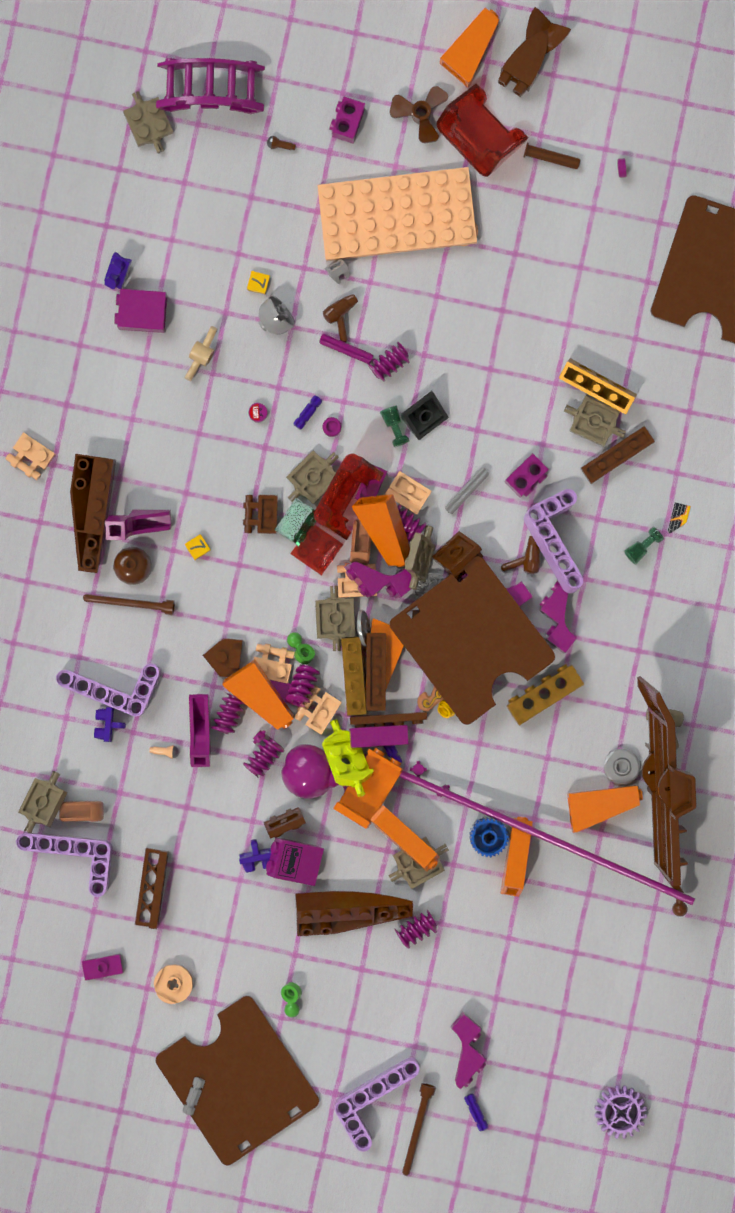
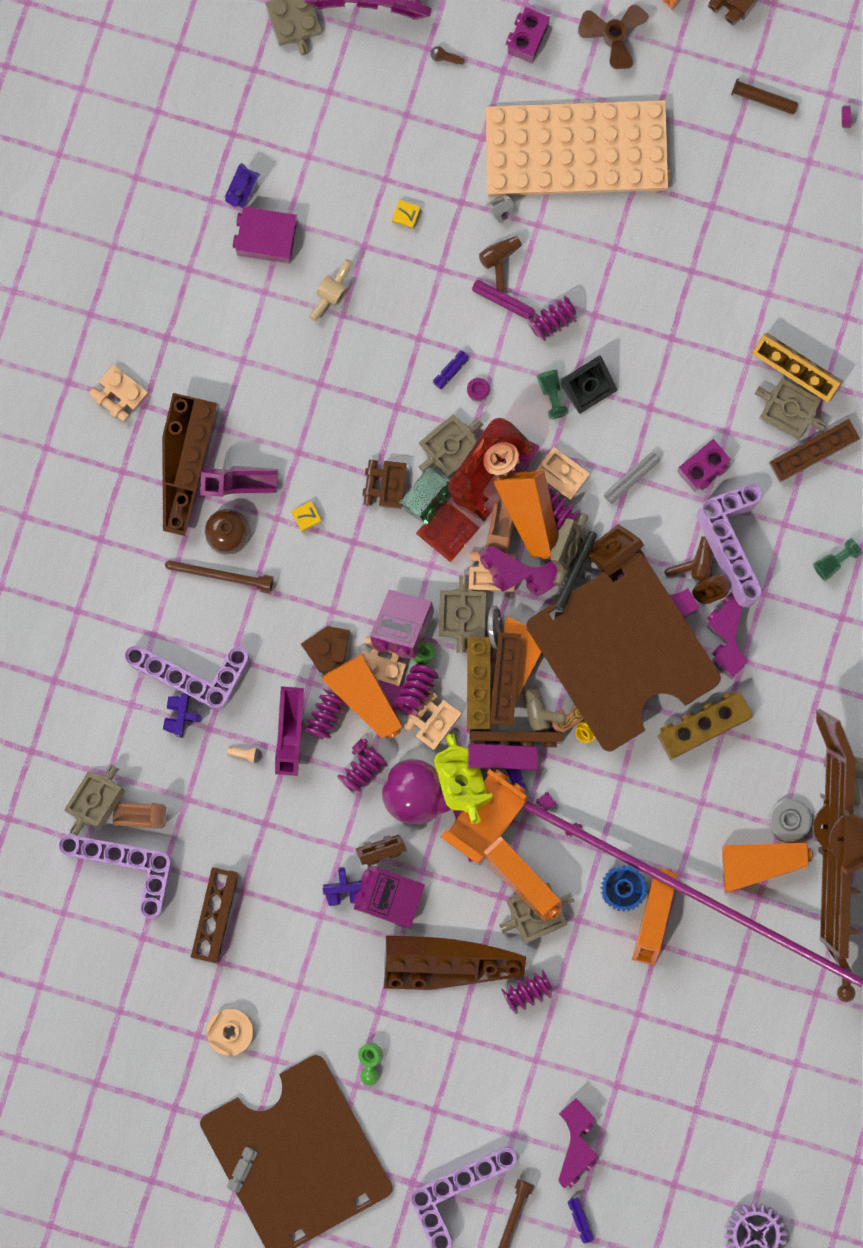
camera: 10 degrees right, 5 degrees down
(102, 967) = (147, 1004): magenta plate -> none
(258, 412) = (392, 365): tile -> none
(274, 317) = (422, 255): light grey cylinder -> none
(285, 632) = (401, 624): none -> brick
(356, 478) = (502, 450): none -> light nougat gear
(404, 696) = (537, 715): none -> dark tan piece
(426, 575) = (575, 571): none -> pearl dark grey bar
(478, 132) = (680, 62): clear red windscreen -> none
(541, 580) = (711, 589): none -> reddish brown plate

